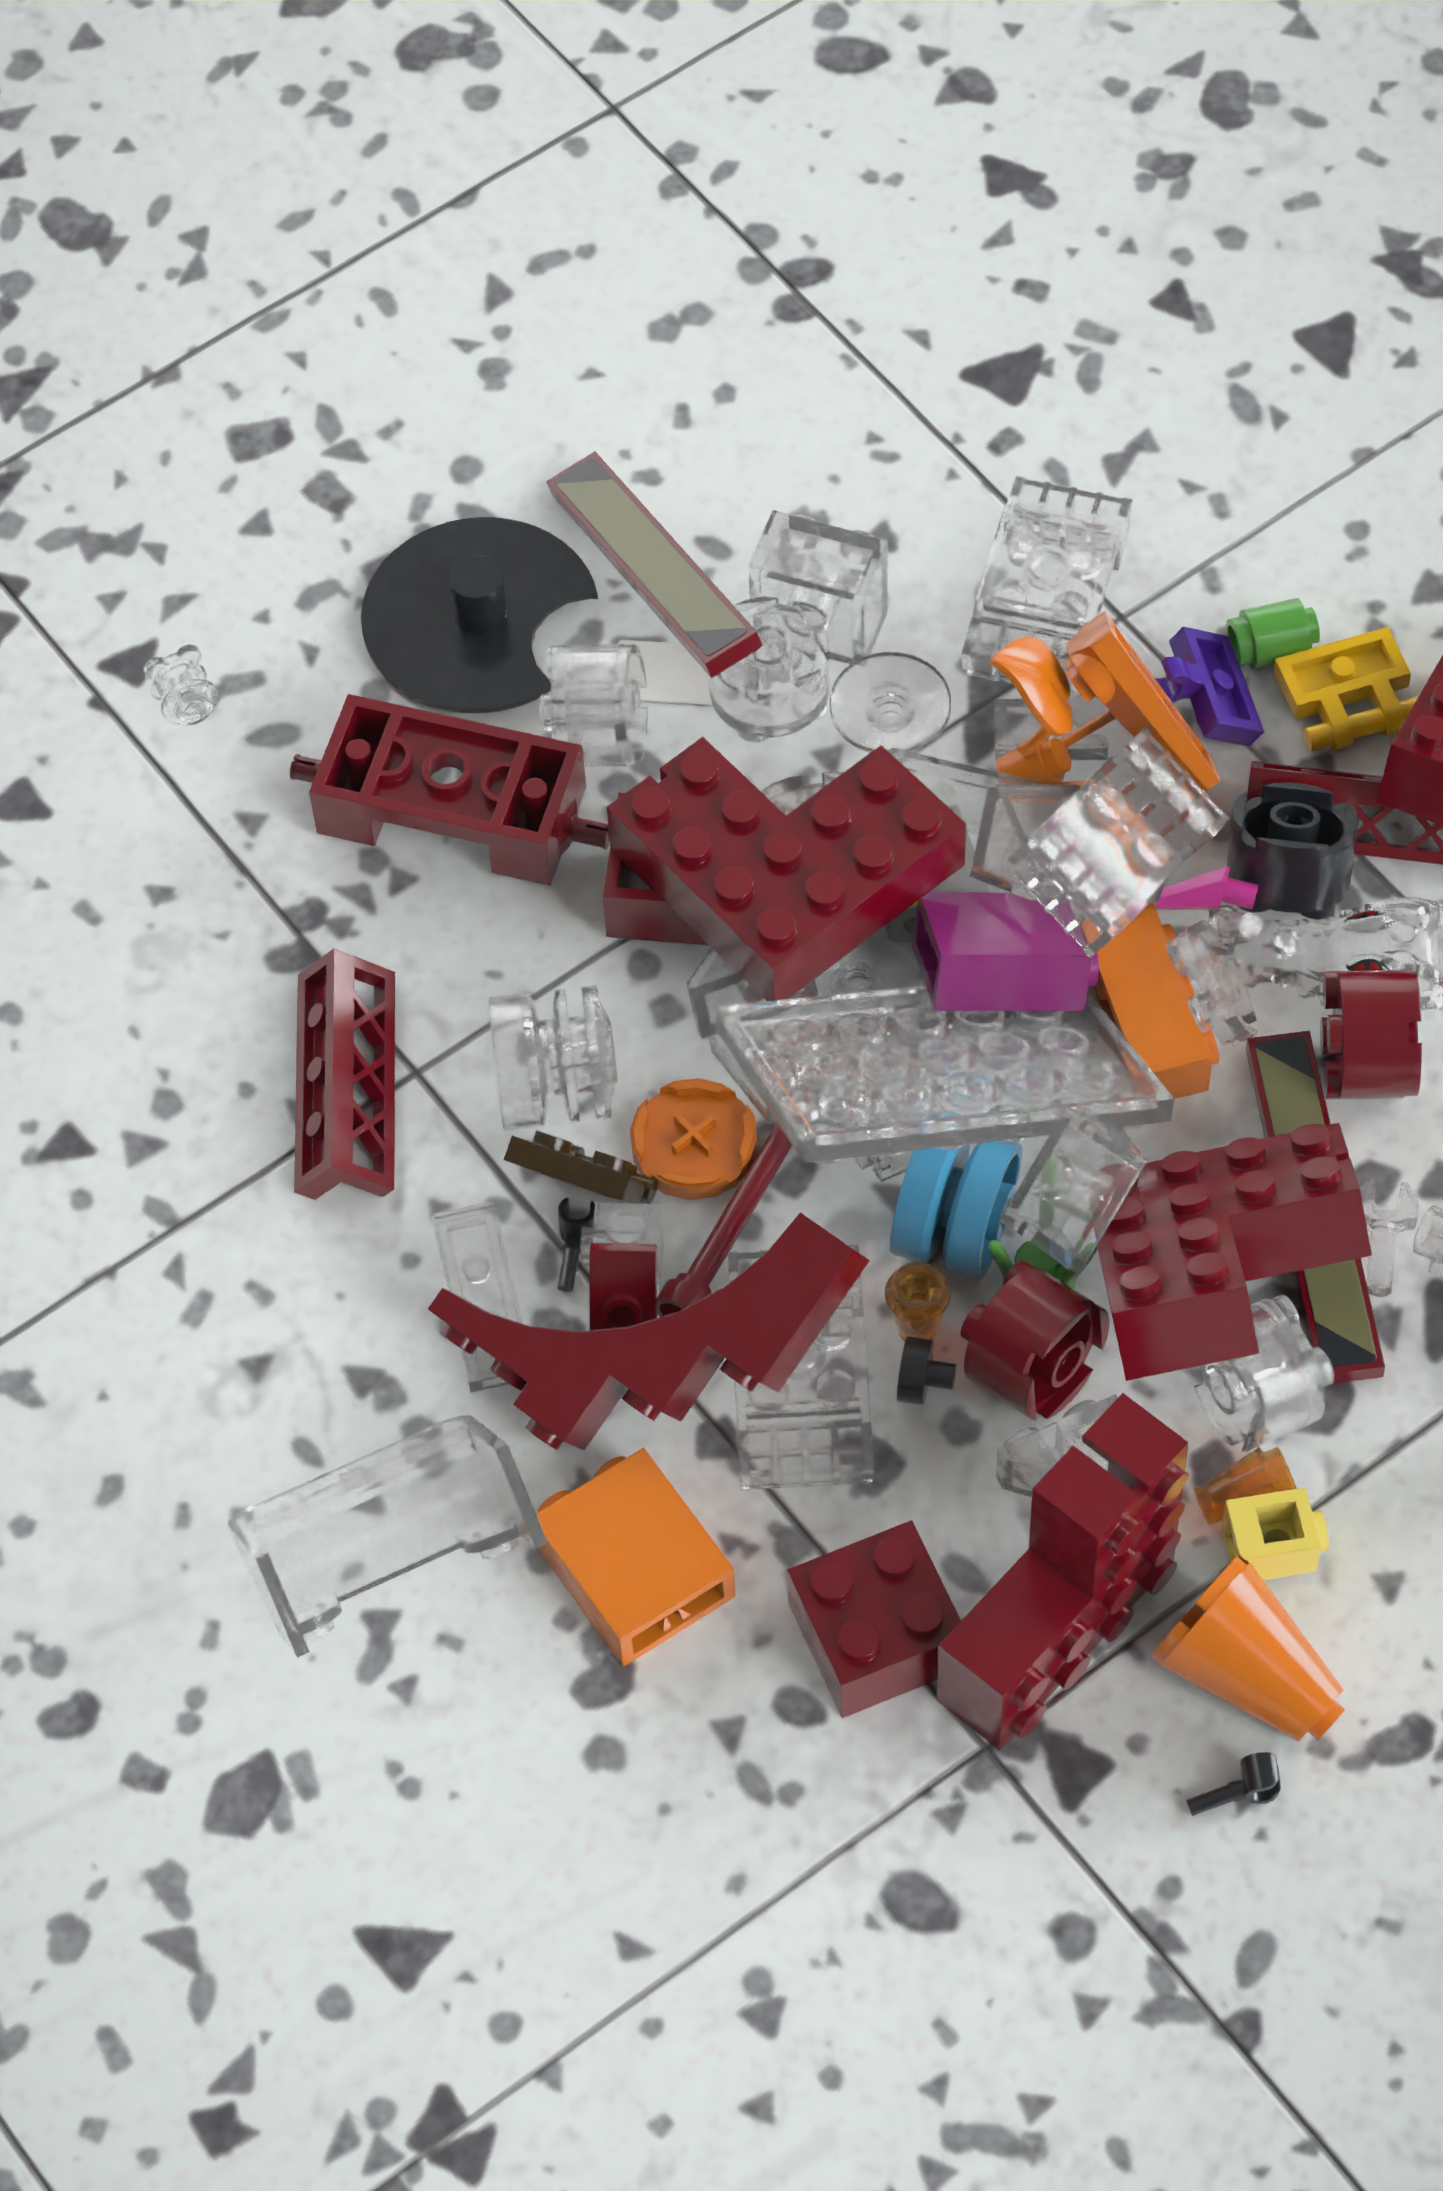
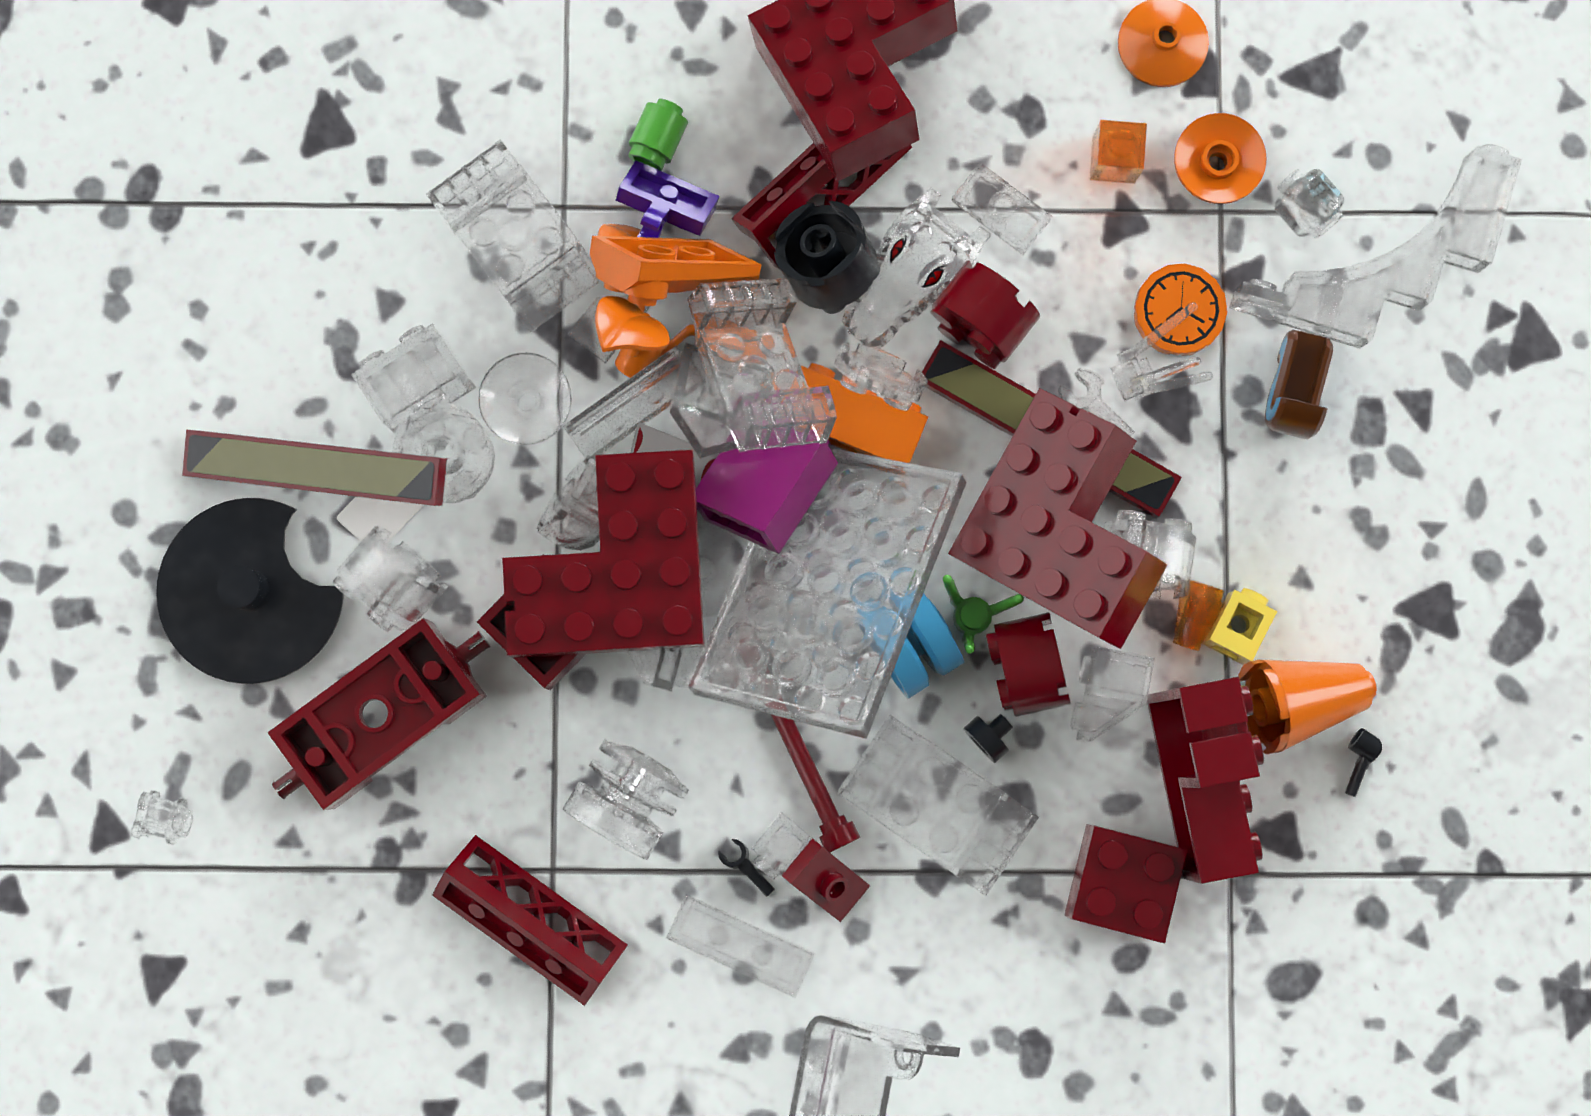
camera: 60 degrees left, 25 degrees up
(569, 1164) = (714, 835): dark brown plate -> none
(634, 1556) = (979, 988): orange brick -> none
(694, 1139) = (729, 745): orange tile -> none
(756, 1322) = (850, 942): dark red arch -> none
(917, 1299) = (966, 708): clear orange cone -> none
(1075, 1187) = (987, 579): clear slope -> none
(1208, 892) = (821, 330): dark pink bar -> none
(1231, 924) = (841, 333): clear bar -> none
(1343, 674) = (717, 115): yellow plate -> none

